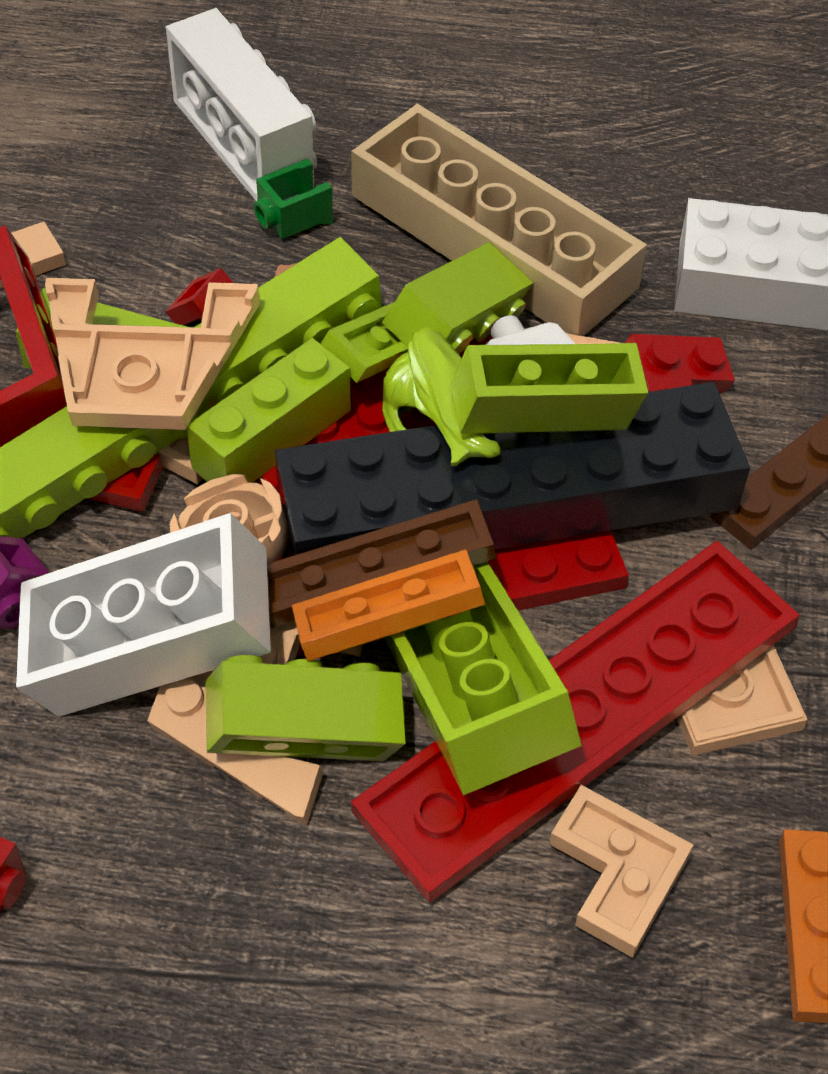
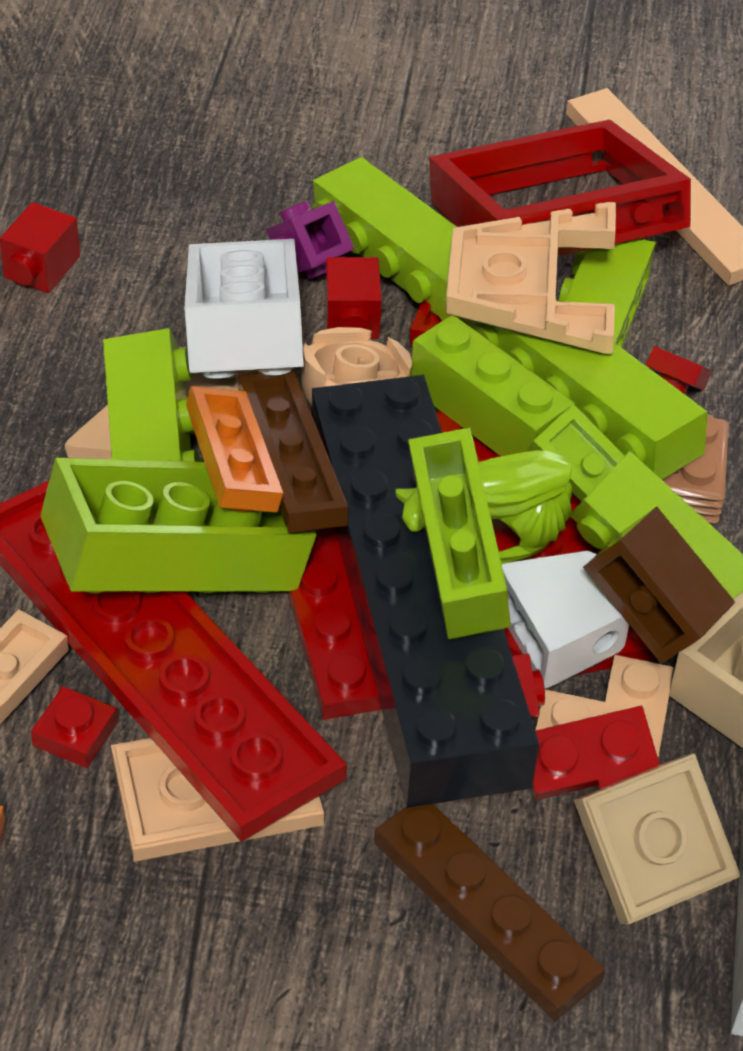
camera: 90 degrees right, 5 degrees down
(81, 537) = (353, 293): none -> red brick
(537, 290) = (659, 585): none -> reddish brown brick
(672, 783) = (74, 727): none -> red plate
(742, 346) = (657, 839): none -> tan tile

